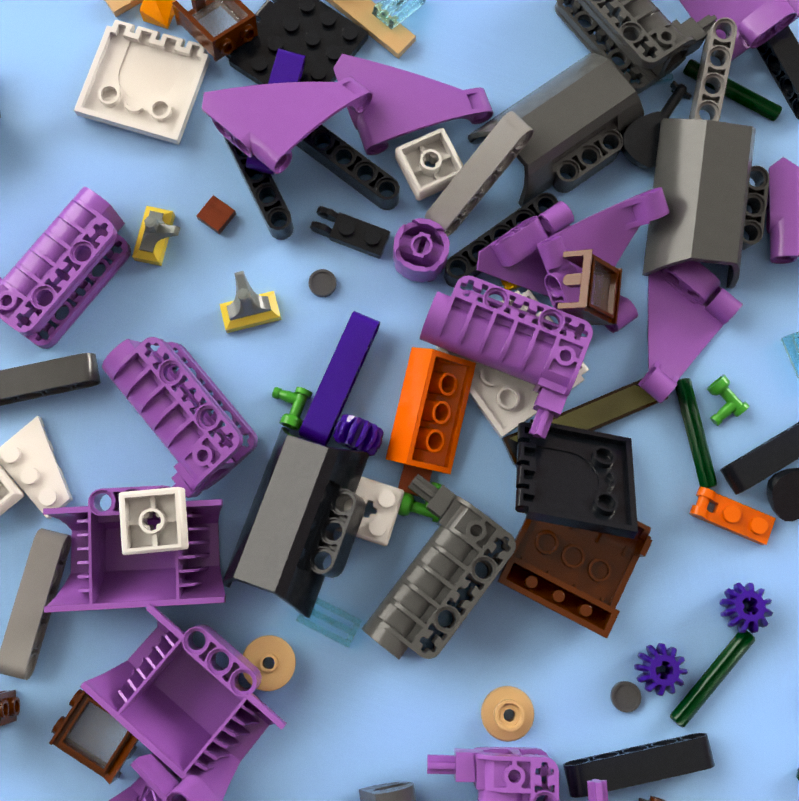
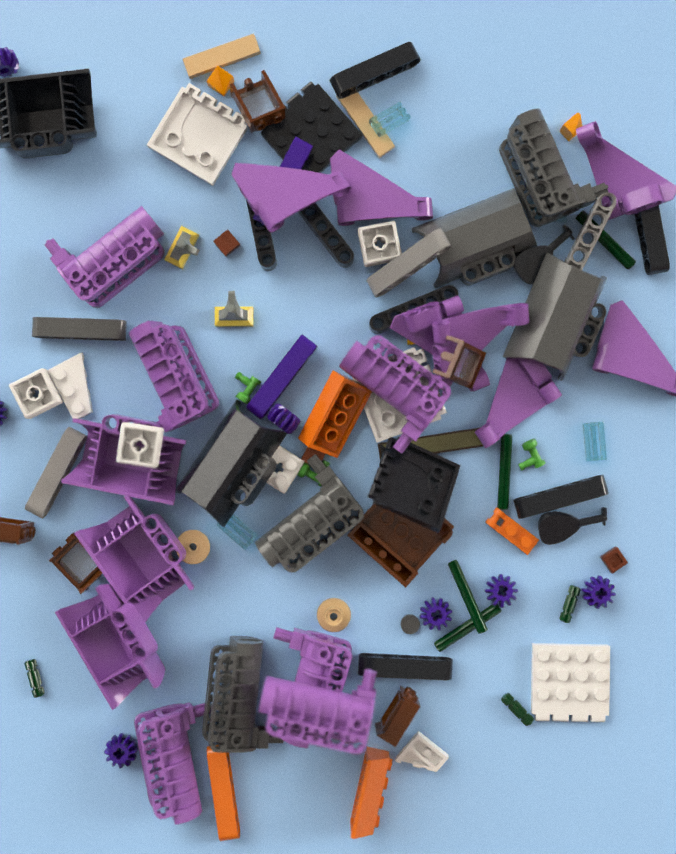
camera: 20 degrees right, 10 degrees up
(322, 283) = (286, 308): dark grey piece -> none
(352, 232) = (315, 278): black hinge -> none
(420, 250) = (356, 304): medium lavender brick -> none
(700, 630) = (467, 596): none -> dark green axle

